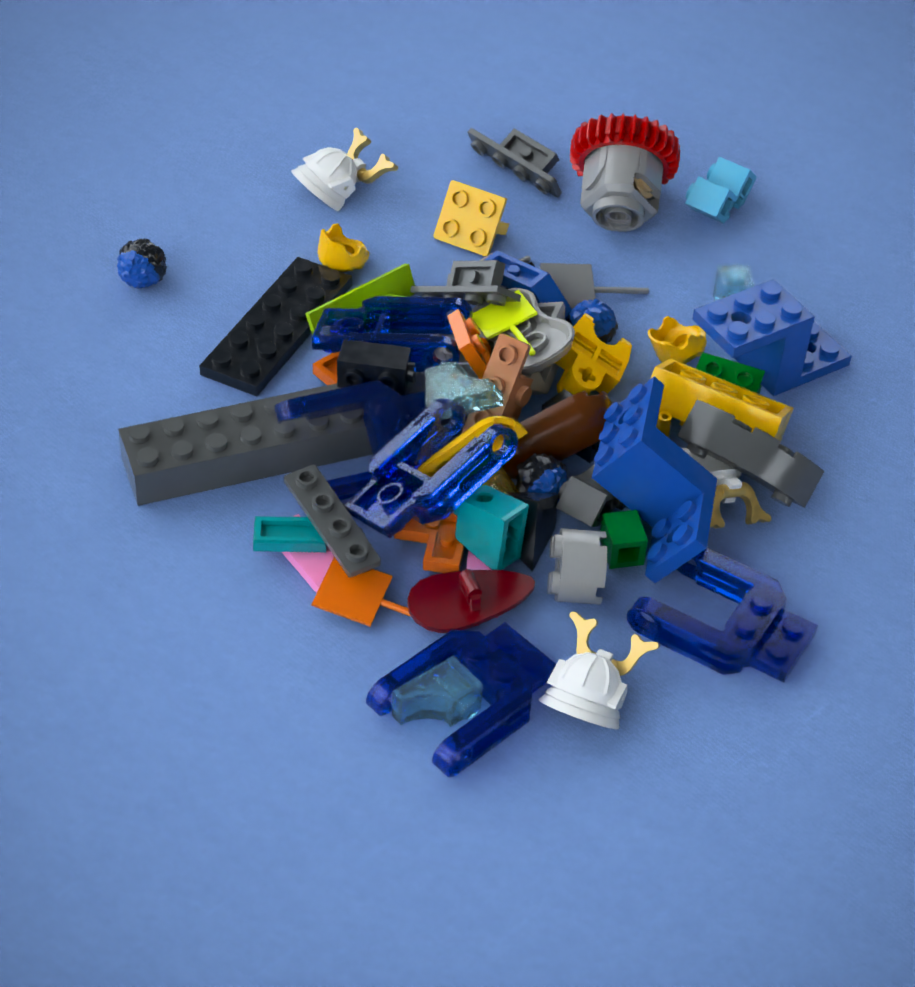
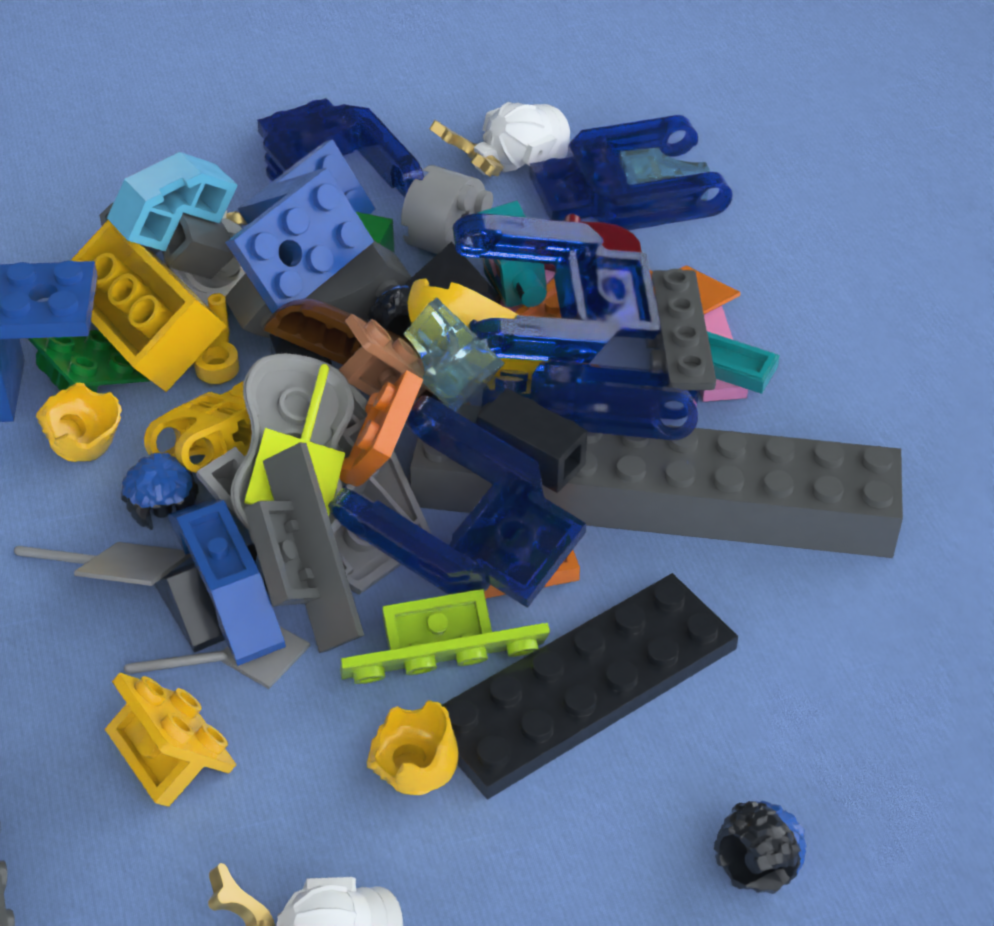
camera: 150 degrees left, 0 degrees up
(740, 418) = (157, 197): none -> medium azure brick

